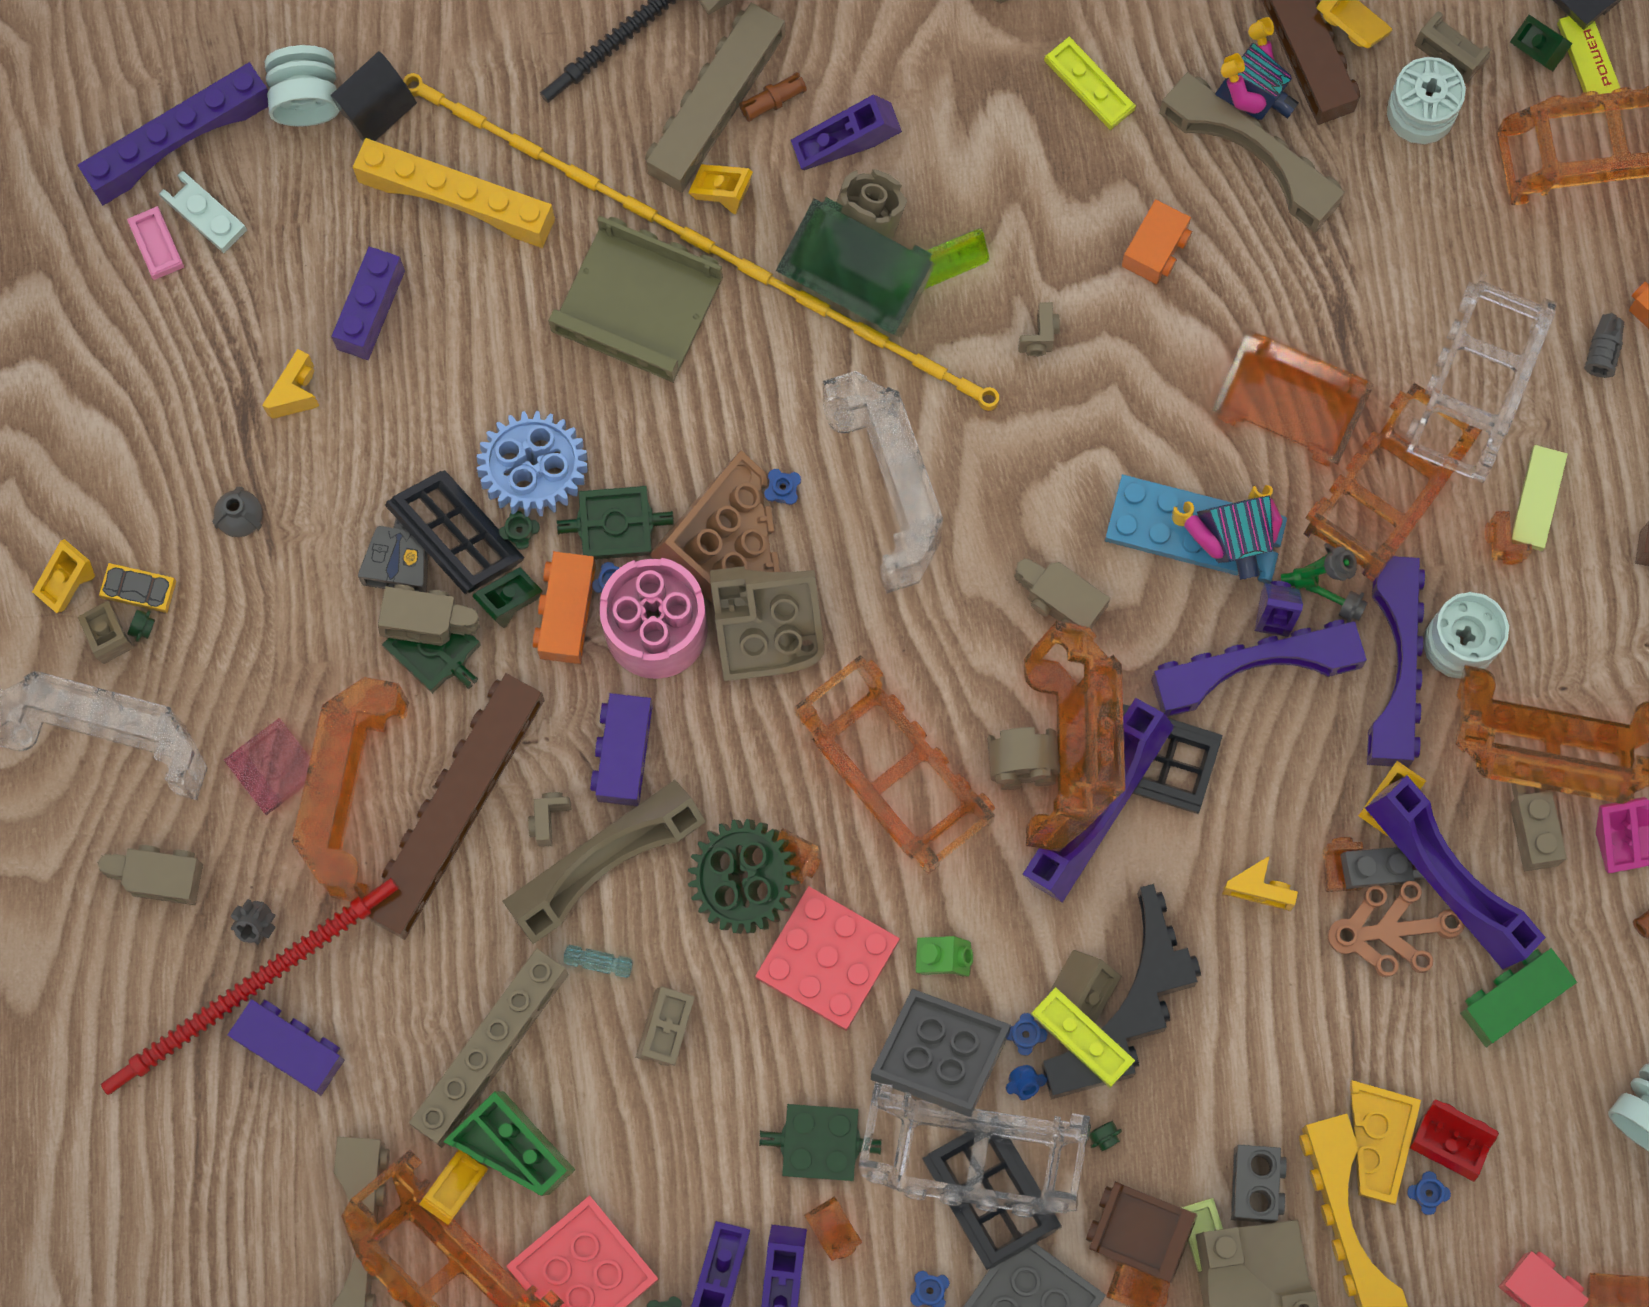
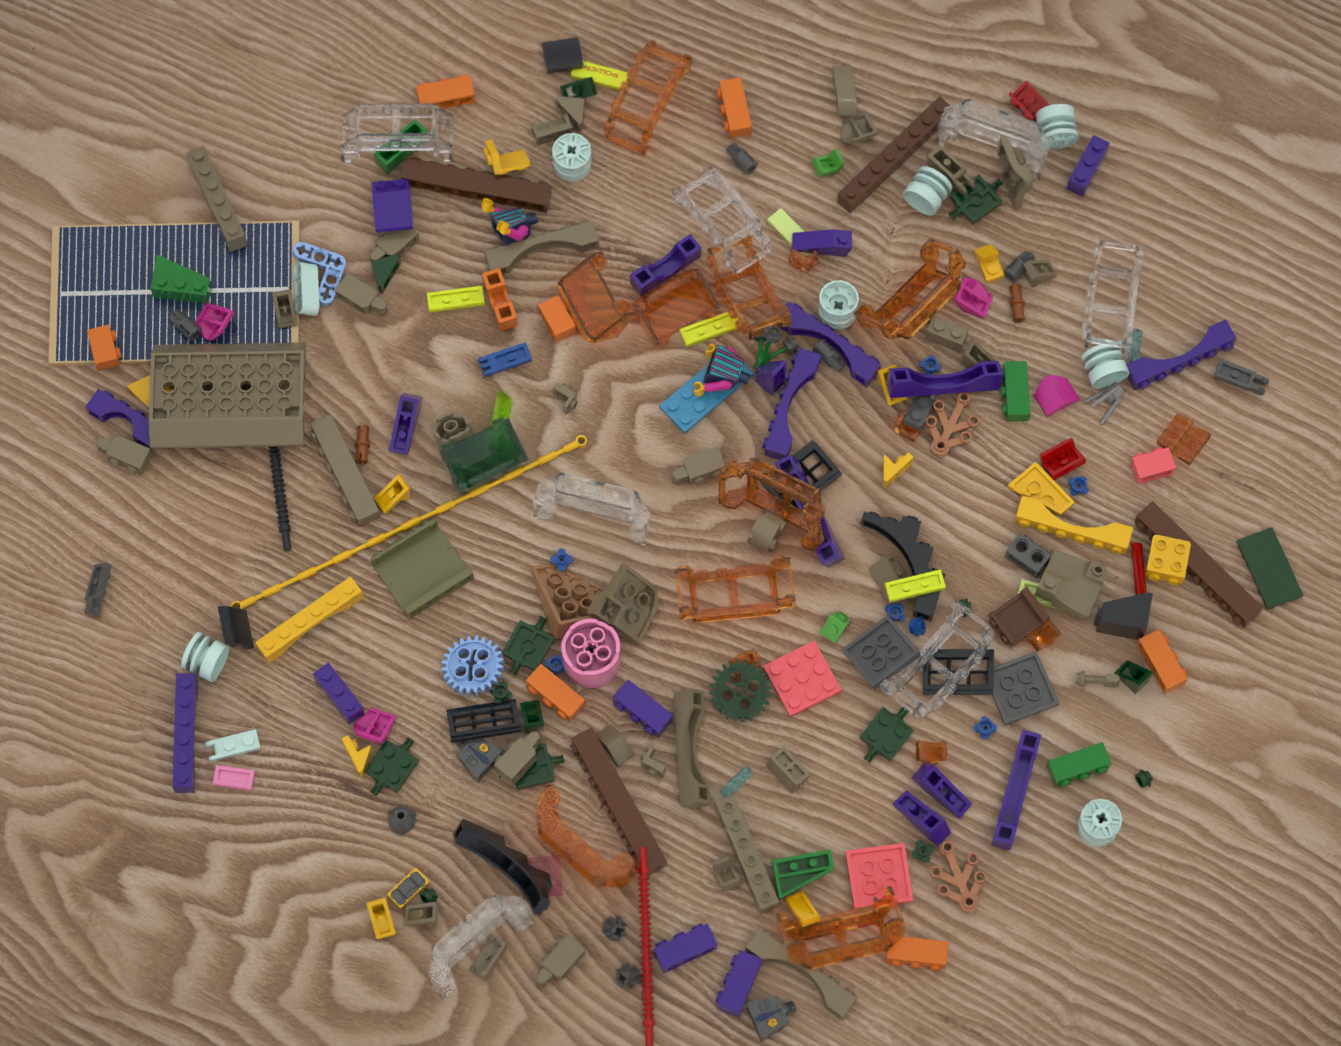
camera: 60 degrees left, 5 degrees down
(97, 768) = (488, 958): none -> dark tan hinge
(190, 988) = (628, 976): none -> dark grey gear
(254, 710) = (513, 864): none -> black arch
(256, 1241) = (769, 1015): none -> dark grey torso
(278, 1161) = (738, 983): none -> dark purple brick
(308, 448) = (391, 766): none -> dark green plate
(352, 385) = (374, 725): none -> dark pink slope
(440, 1036) = (726, 873): none -> dark tan bracket
(542, 744) = (615, 745): none -> dark tan slope
(1041, 210) = (505, 359): none -> blue hinge
(1117, 155) = (499, 299): none -> orange arch
(1206, 268) = (591, 301): none -> clear orange windscreen
(1291, 467) = (707, 329): none -> neon yellow tile
(1377, 675) = (829, 355): none -> dark grey hinge
(1380, 355) = (650, 276): none -> dark purple arch
(1464, 829) = (931, 360): none -> blue plate
(1507, 57) = (573, 108): none -> dark tan slope
(1533, 896) = (974, 354): none -> dark tan slope
(1554, 549) = (826, 242): none -> dark purple slope
(1558, 1062) = (1055, 394): none -> dark pink slope
(1619, 1150) = (1111, 394): none -> light grey plant

